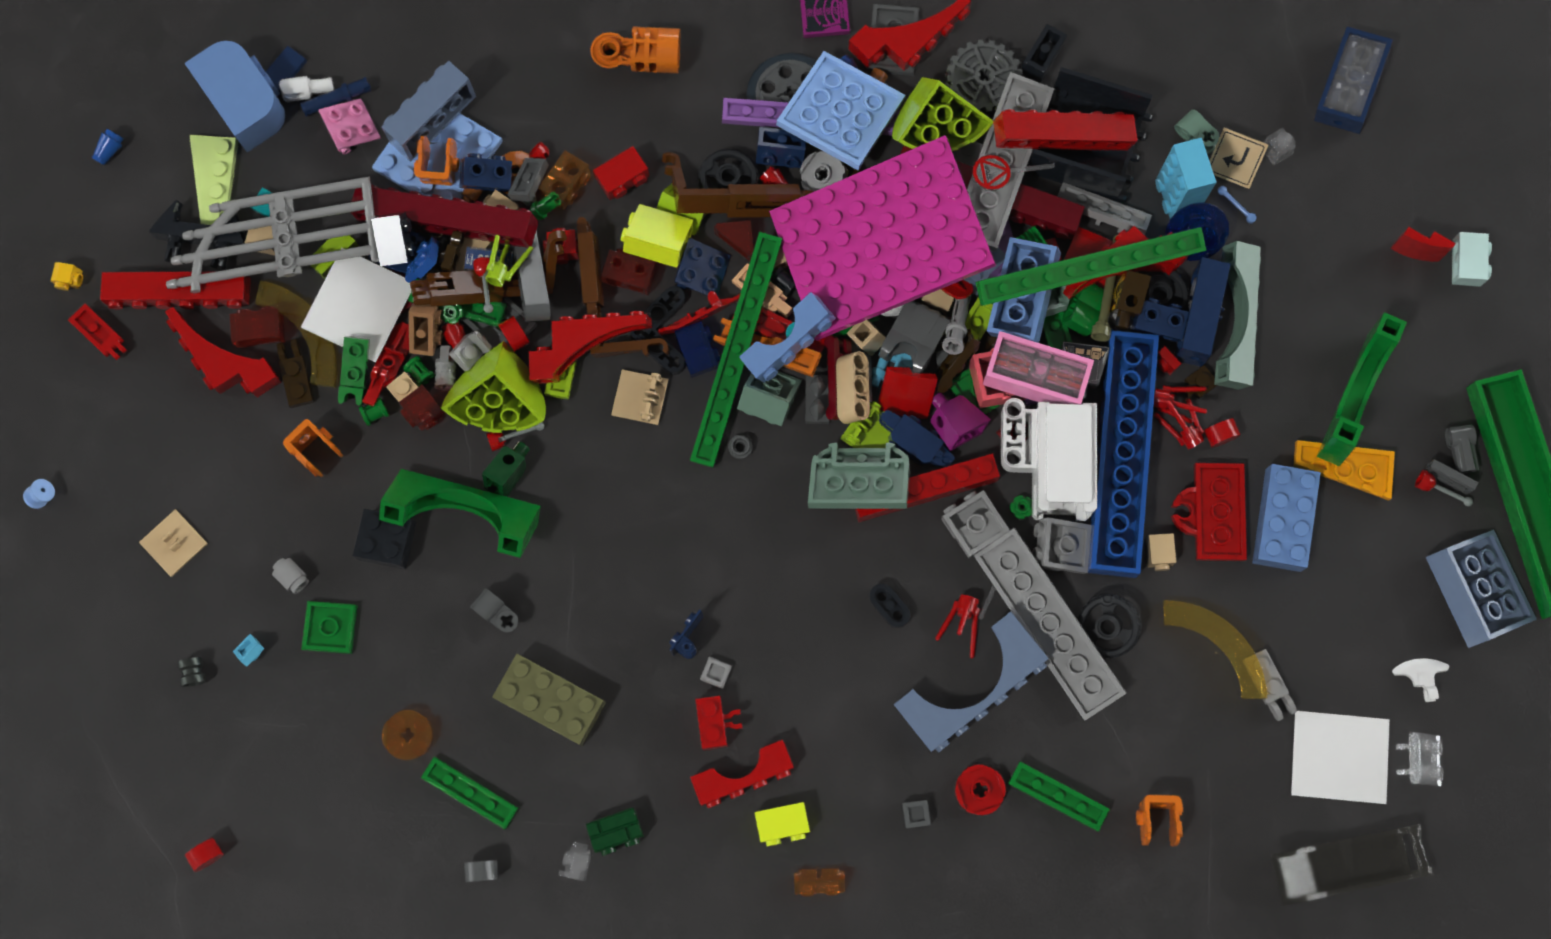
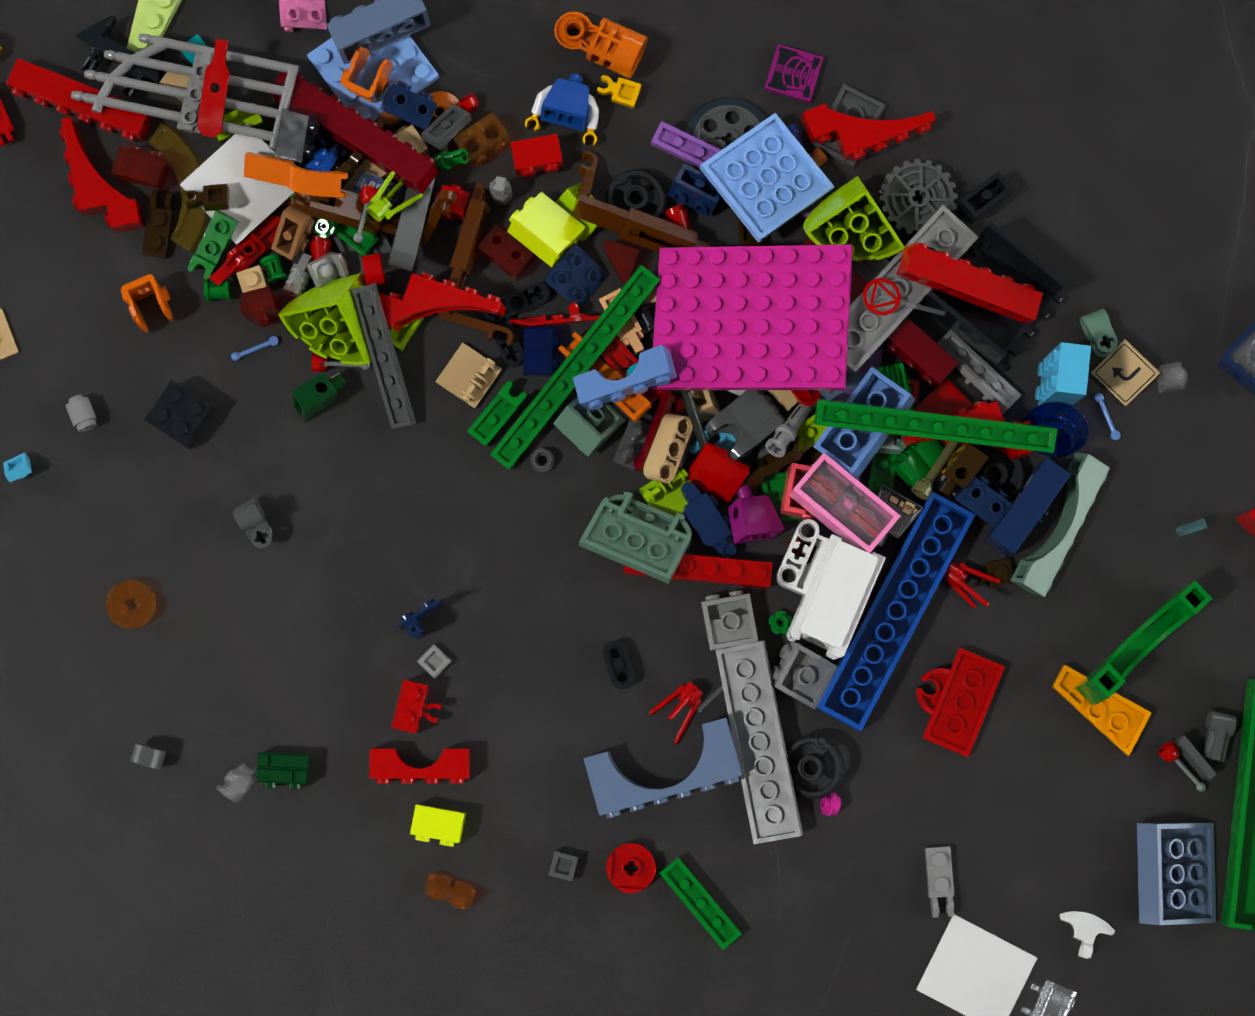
camera: 20 degrees right, 5 degrees up
(302, 240) = (213, 104): none -> red piece
(329, 627) = (99, 475): green tile -> none
(335, 326) = (212, 198): none -> dark brown plate
(405, 276) = (297, 179): none -> orange piece
(417, 493) = (227, 384): green arch -> none
(444, 438) = (273, 341): none -> medium blue hinge
(469, 793) = (166, 680): green tile -> none
(549, 699) = (271, 625): olive brick -> none
(554, 408) = (383, 355): none -> dark grey tile
(601, 218) = (500, 190): none -> light grey hinge
(631, 118) = (566, 105): none -> blue torso
(678, 87) = (623, 92): none -> yellow plate
(681, 422) = (496, 414): none -> green plate
(821, 161) = (714, 228): light grey plate -> none
(866, 350) = (694, 418): none -> pearl dark grey bar
(1139, 655) = (830, 804): none -> dark pink plate
(1160, 551) = (891, 717): tan brick -> none
(1167, 361) = (974, 541): red plate -> none
(1169, 802) = (769, 953): orange piece -> none
(1190, 436) = (964, 619): red plant -> none
(1222, 433) = (997, 629): red piece -> none
(1226, 638) = (917, 823): clear yellow tile -> none
(1286, 518) = (1022, 733): medium blue brick -> none
(1356, 271) = (1191, 527): none -> clear light blue tile

